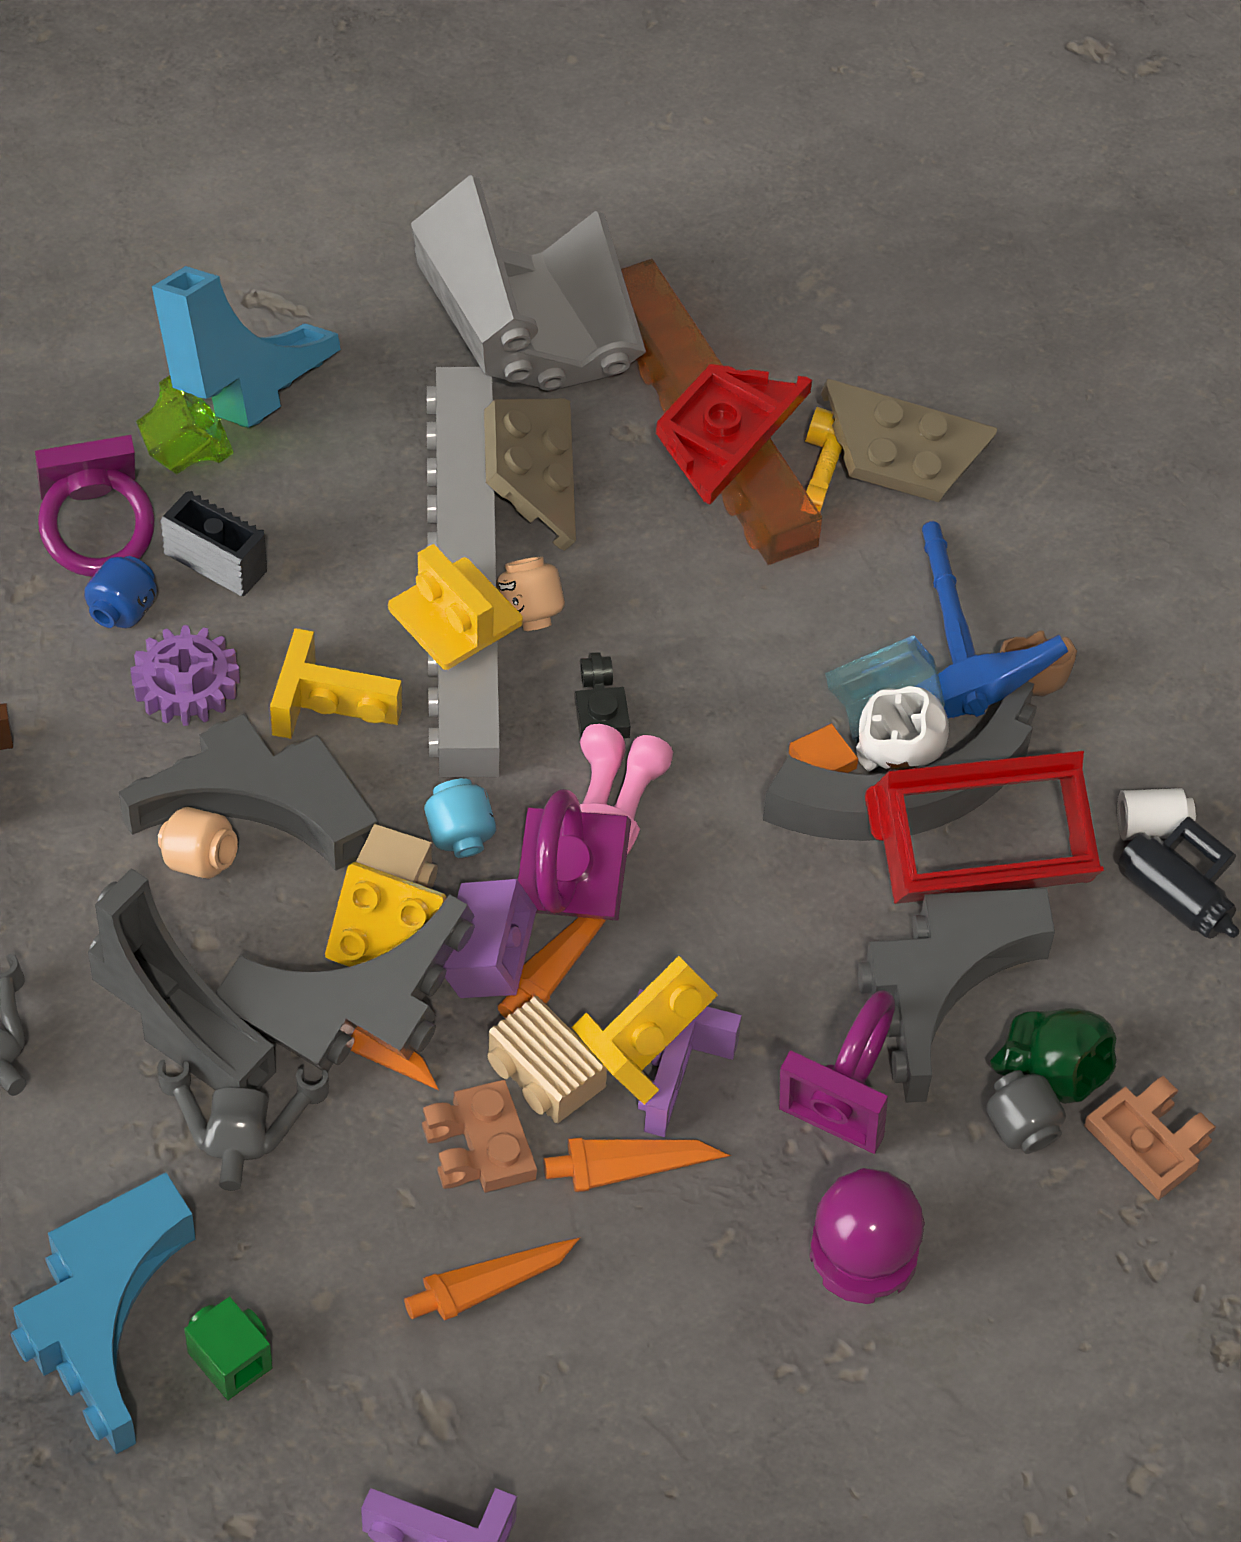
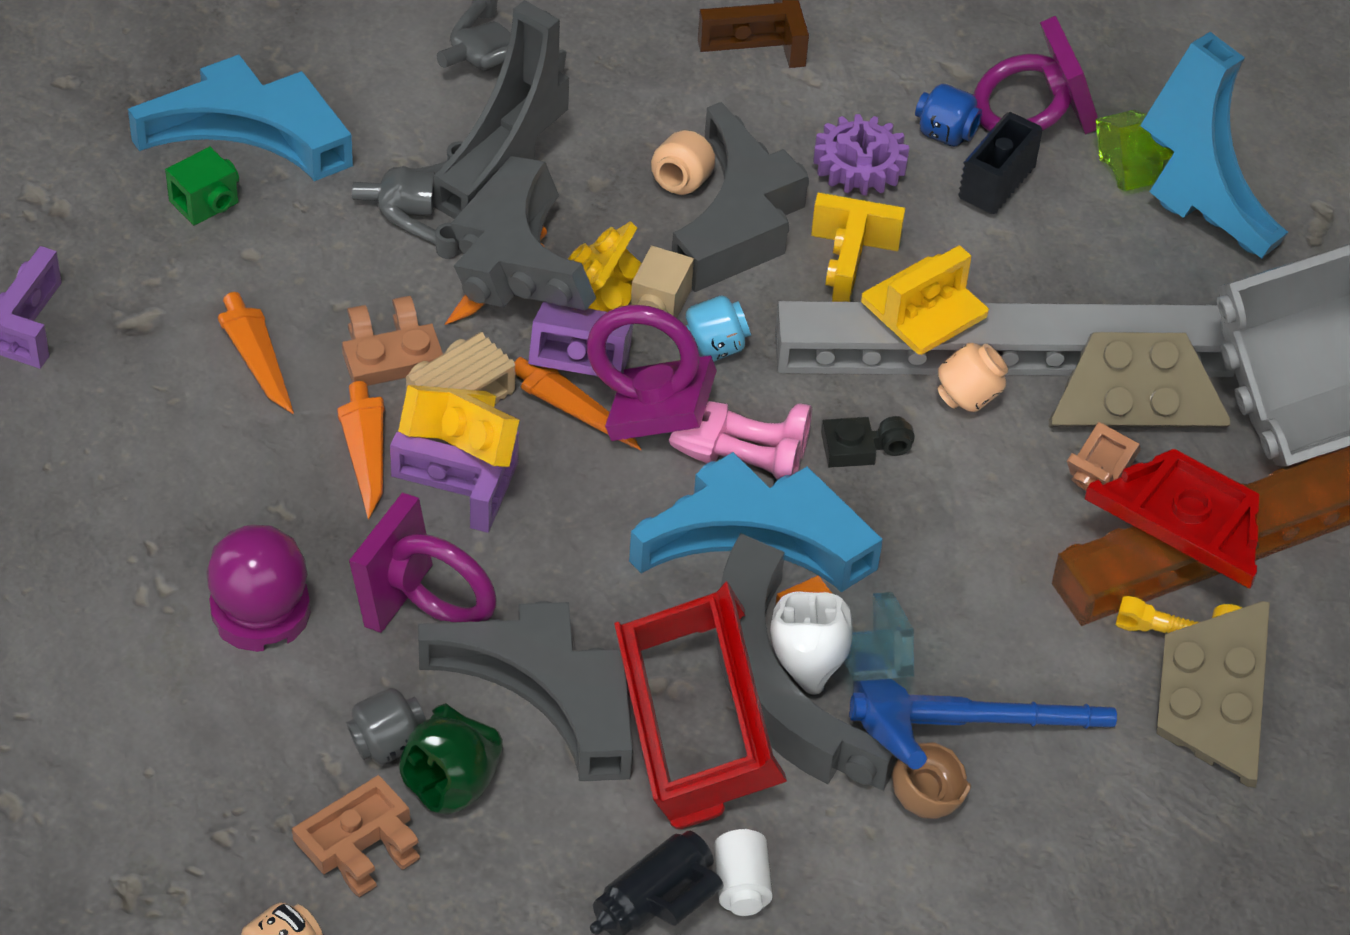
camera: 90 degrees right, 5 degrees down
(628, 501) = (1102, 457): none -> nougat bracket
(718, 765) = (792, 516): none -> dark azure arch

